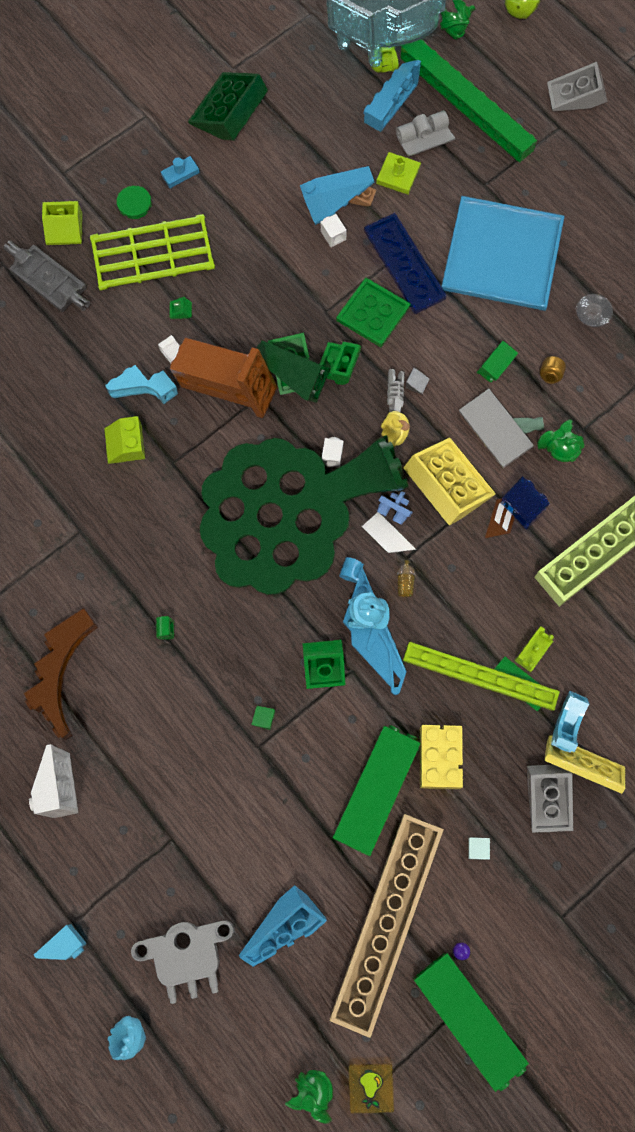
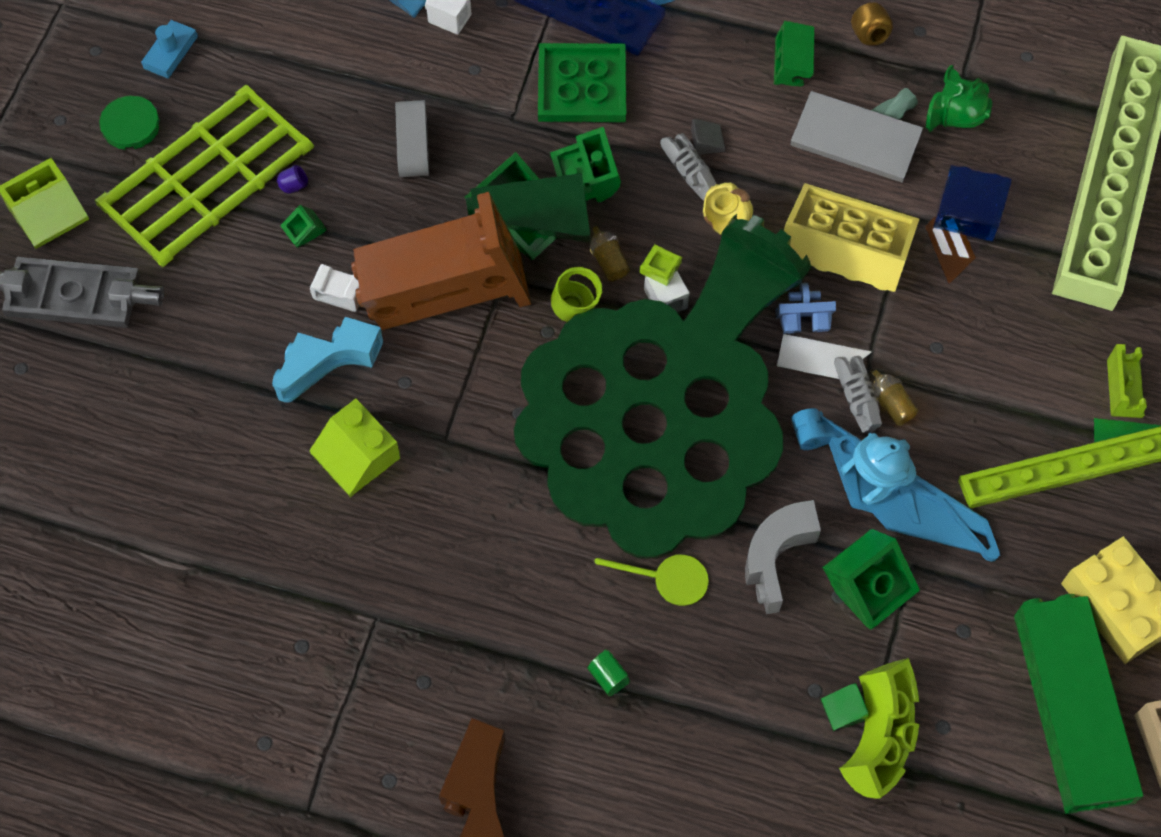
camera: 35 degrees left, 10 degrees down
(188, 280) = (292, 179): none -> dark purple piece
(232, 604) = (678, 578): none -> lime piece
(264, 293) = (412, 138): none -> light grey beam
(273, 744) = (888, 729): none -> lime brick
(281, 424) = (572, 296): none -> lime helmet
(287, 613) = (783, 529): none -> light grey arch
(318, 415) = (609, 254): none -> clear yellow piece
(335, 437) = (660, 265): none -> lime tile
(390, 566) = (859, 392): none -> light grey hinge

